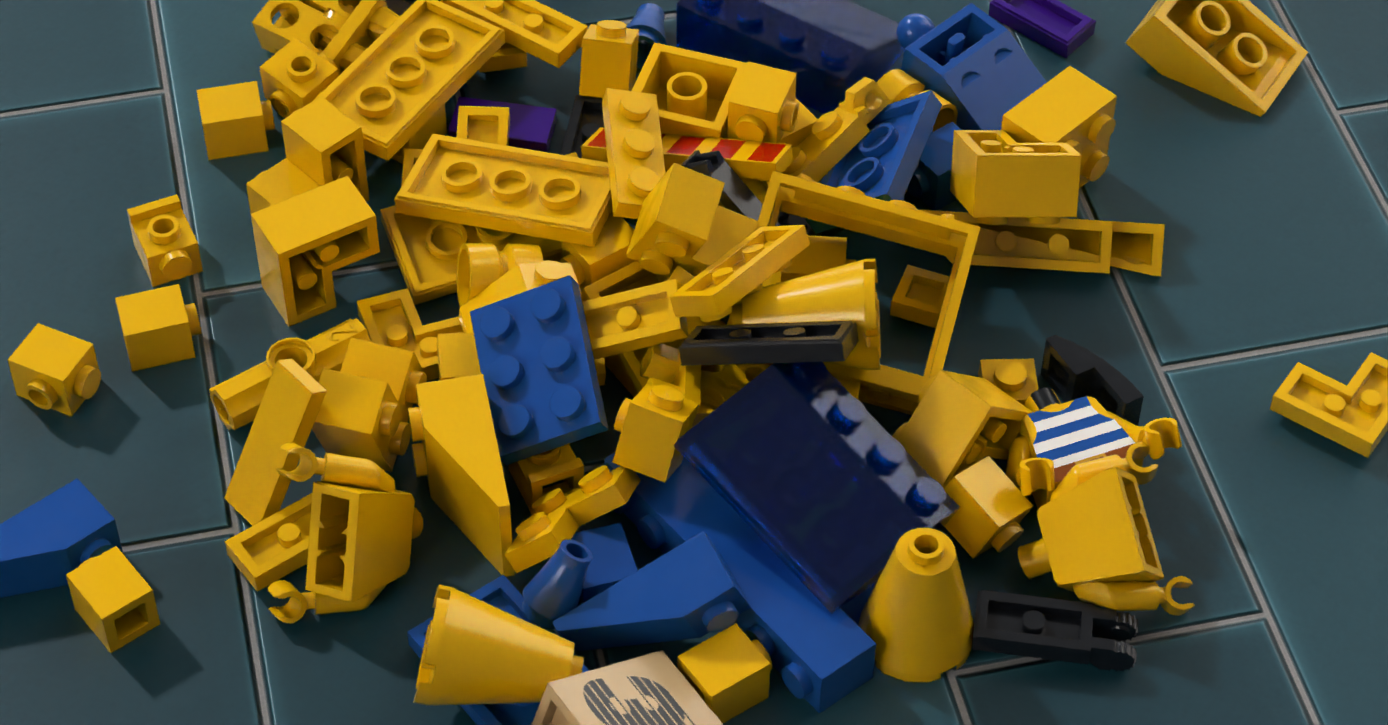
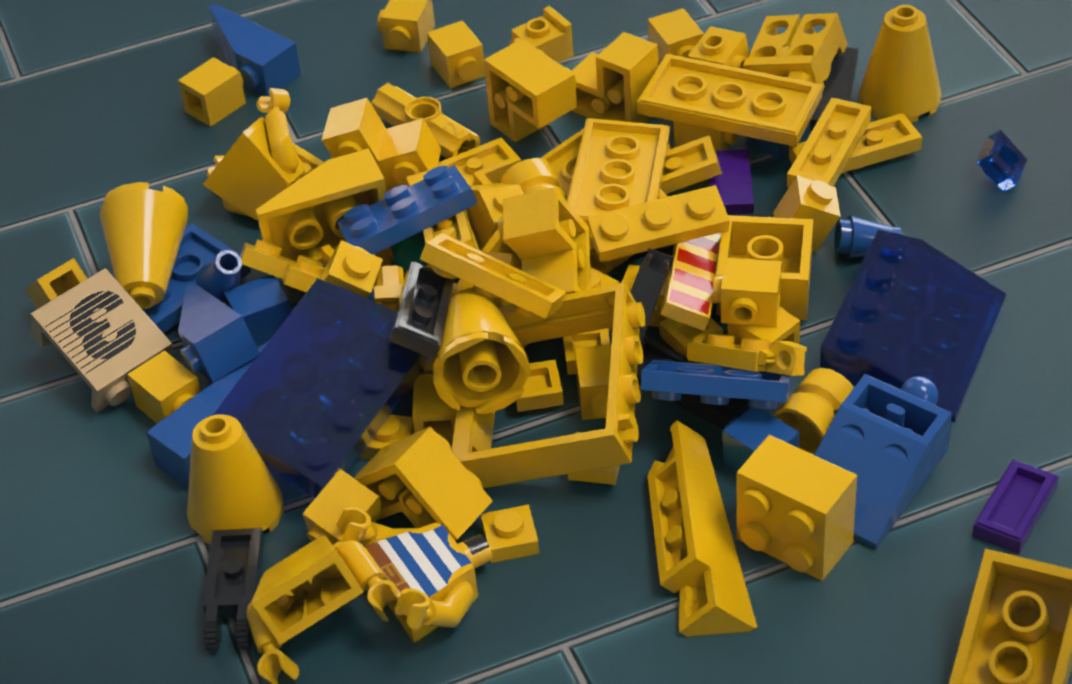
camera: 85 degrees right, 5 degrees down
(282, 418) = (330, 94): yellow tile -> none
(1014, 179) = (698, 455): yellow brick -> none
(1080, 373) = (502, 593): black slope -> none

